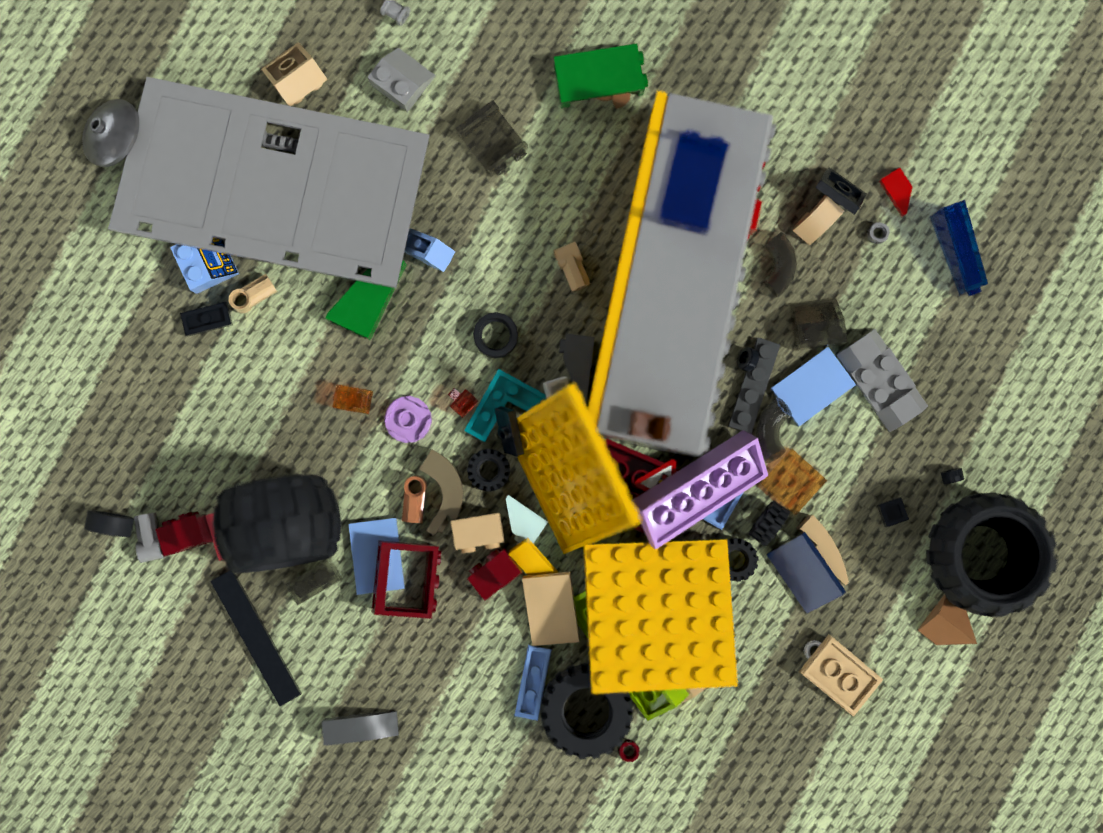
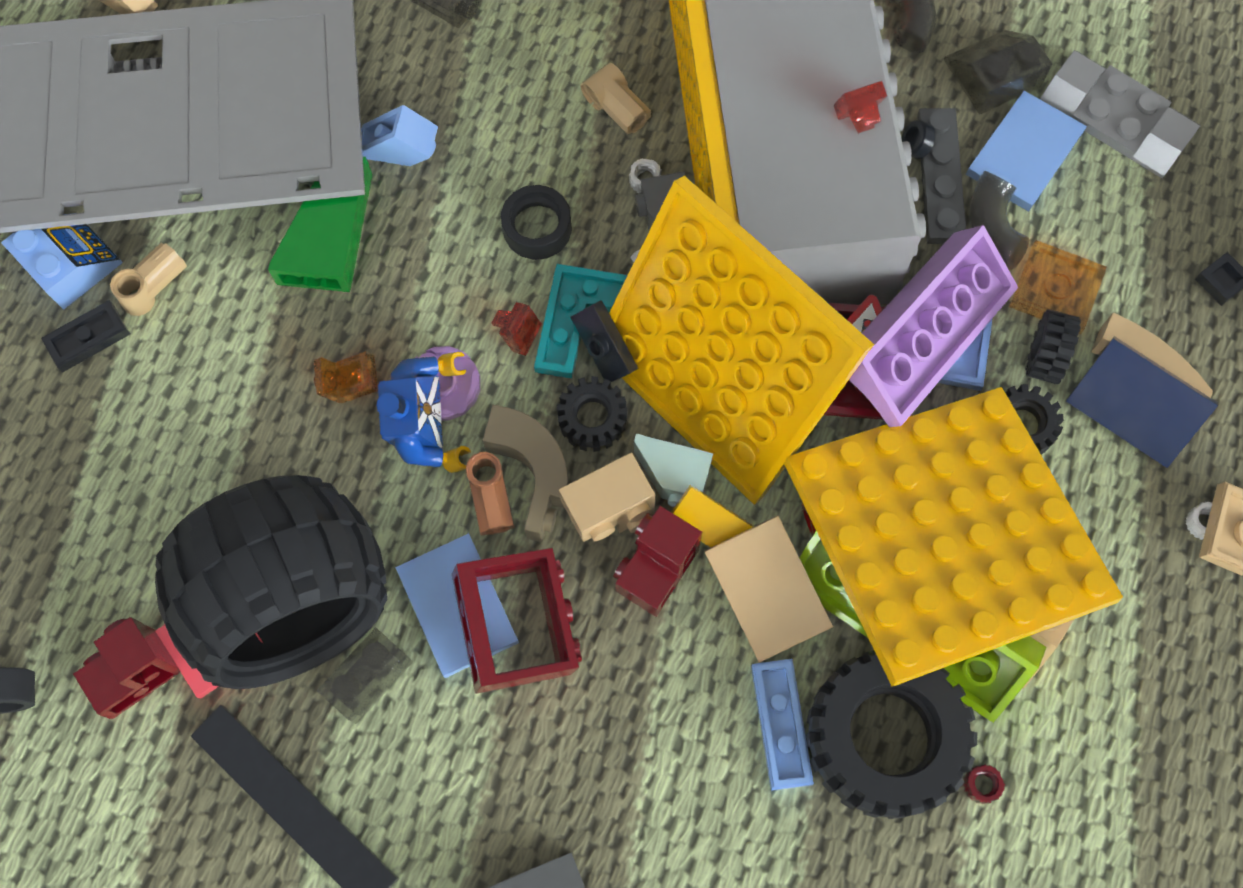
camera: 10 degrees left, 15 degrees down
(148, 545) = (69, 707): light grey piece -> none
(385, 436) = (412, 412): none -> blue torso
(569, 318) = (639, 167): none -> white axle
(649, 426) = (826, 212): reddish brown bracket -> none
(696, 365) = (862, 106): none -> clear red tile

